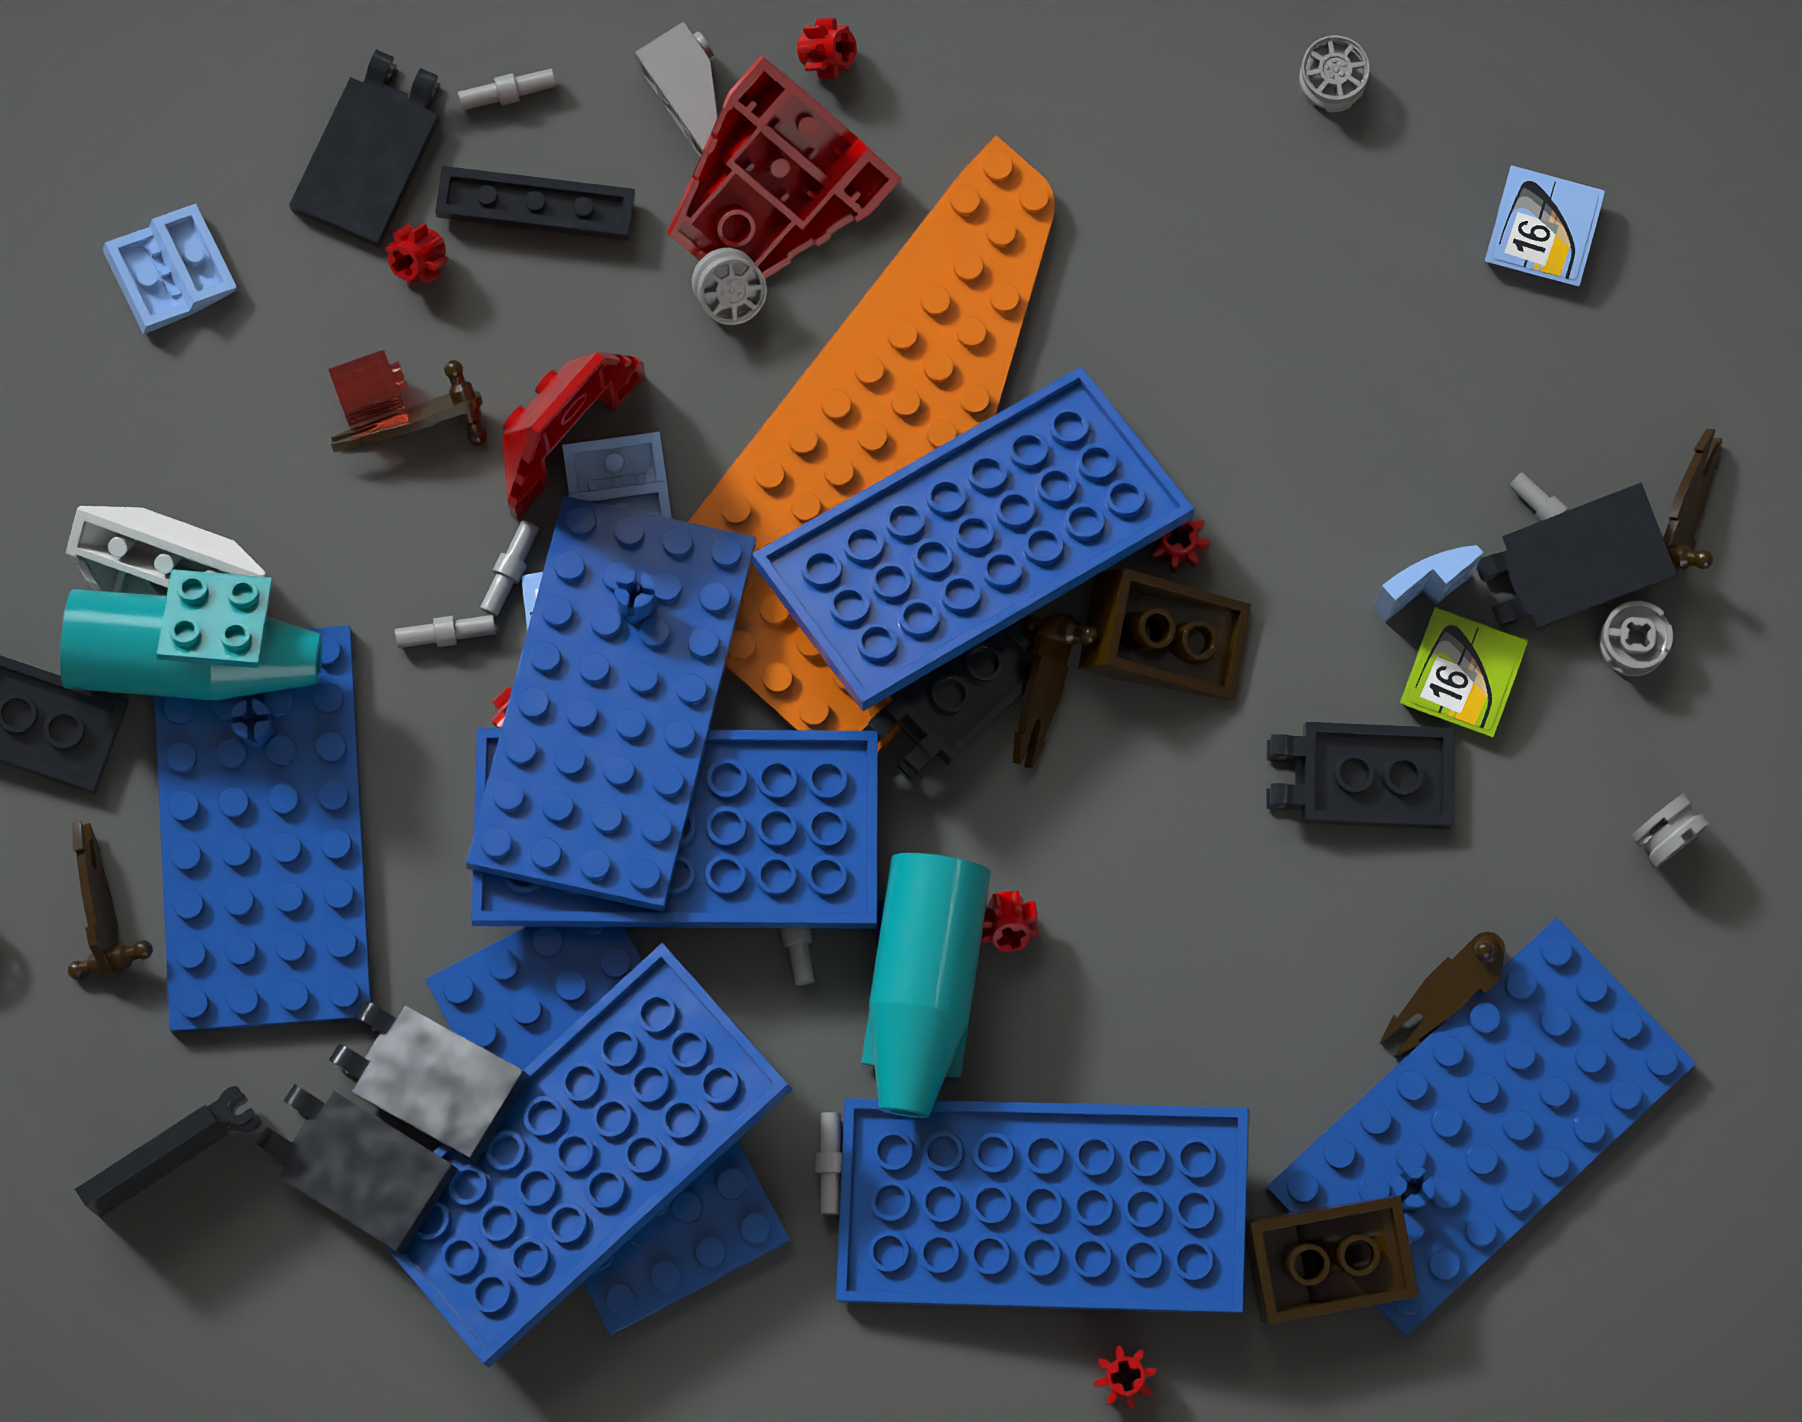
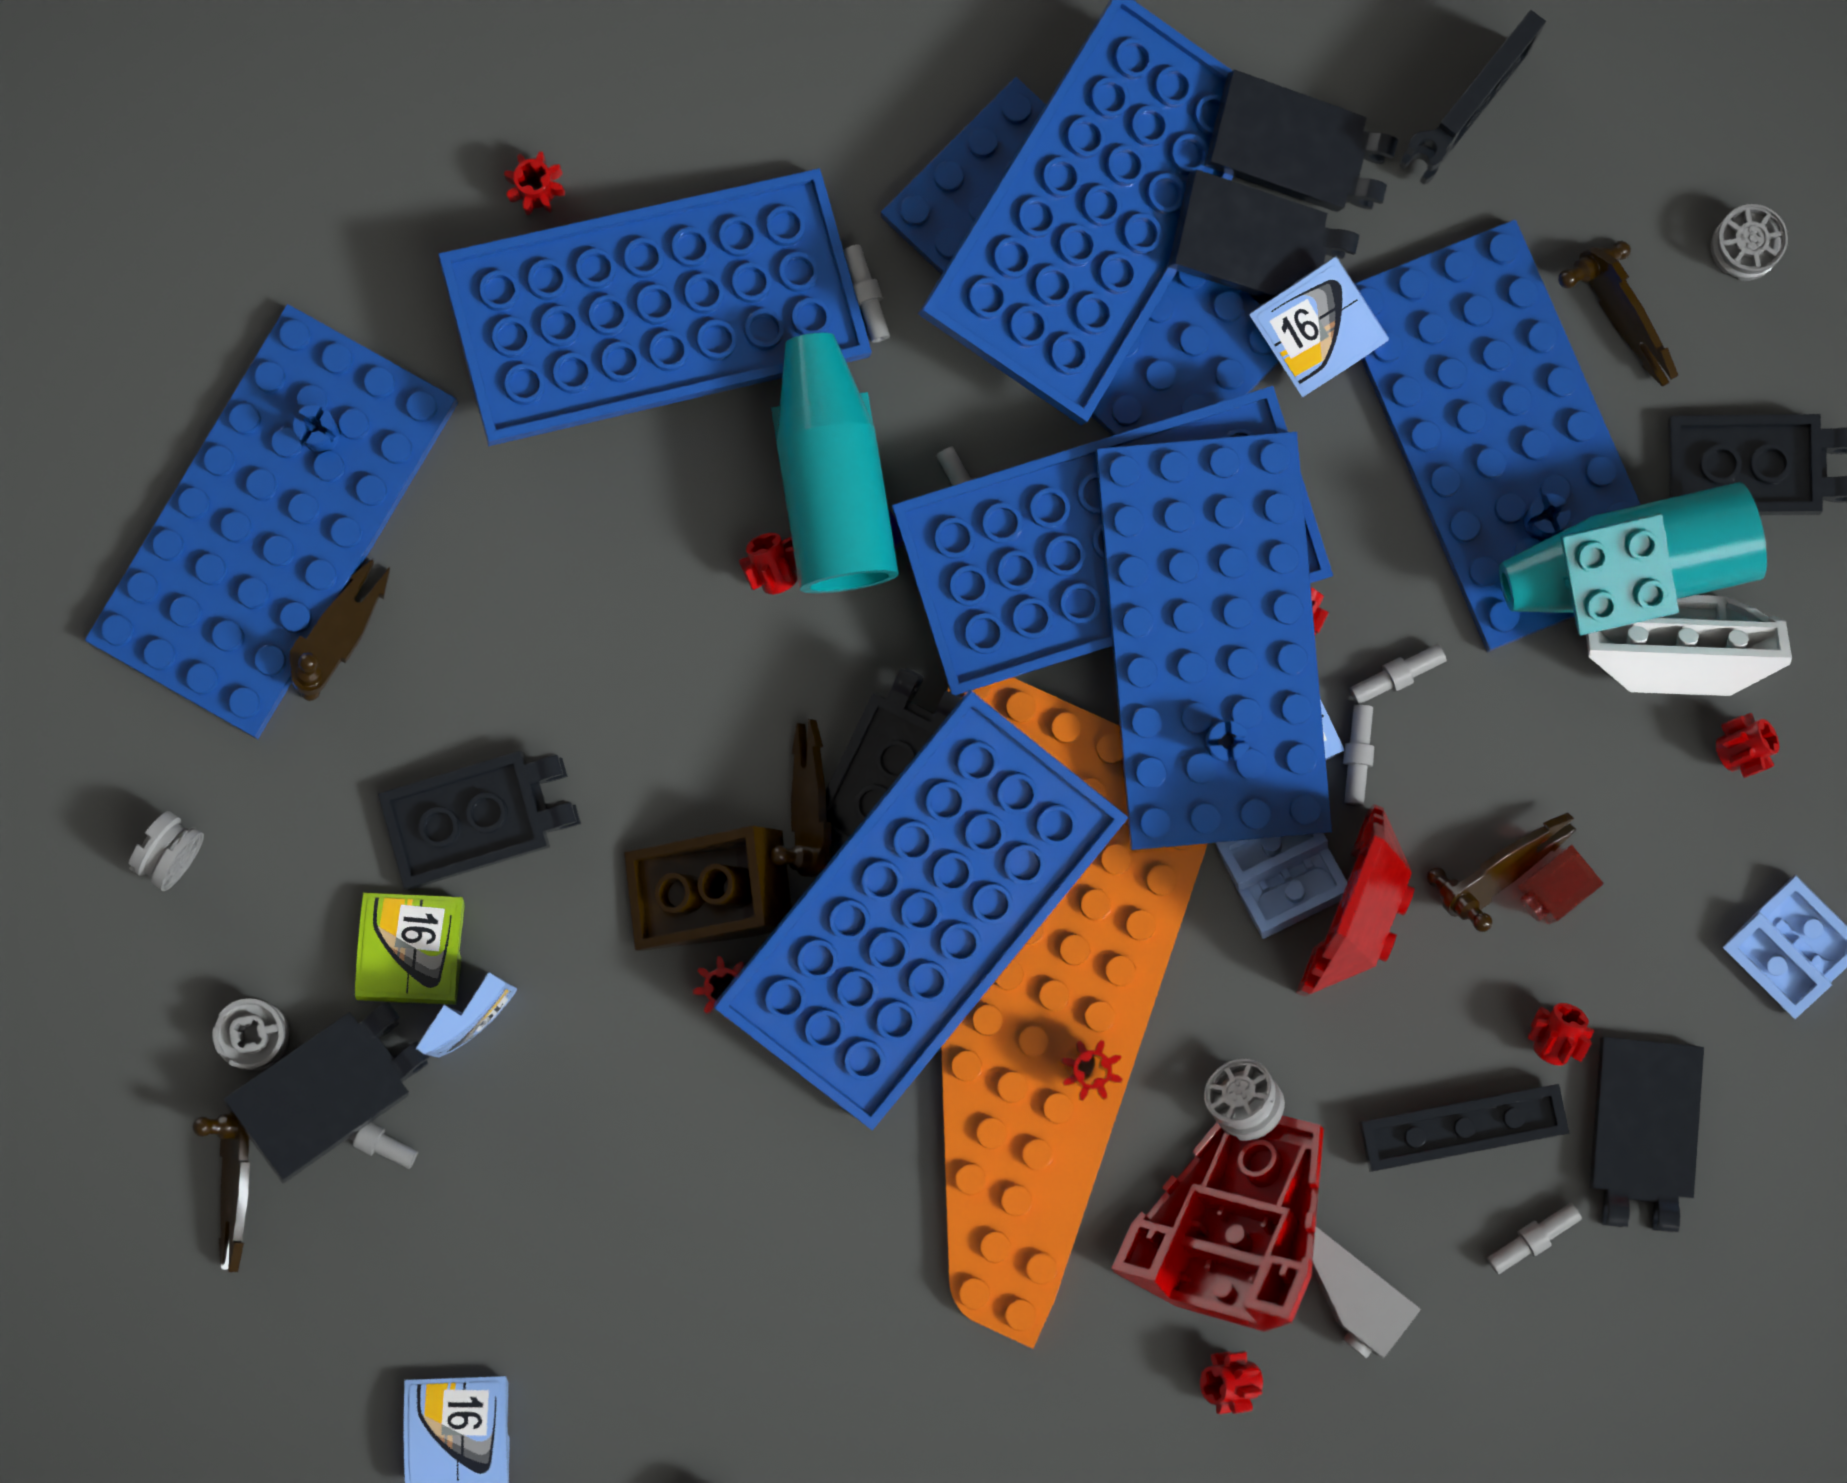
camera: 165 degrees right, 5 degrees up
(143, 457) = (1747, 745): none -> red gear
(402, 976) = (1319, 326): none -> slope
(864, 363) = (1104, 1064): none -> red gear
(1330, 1259) = (375, 338): dark brown slope -> none

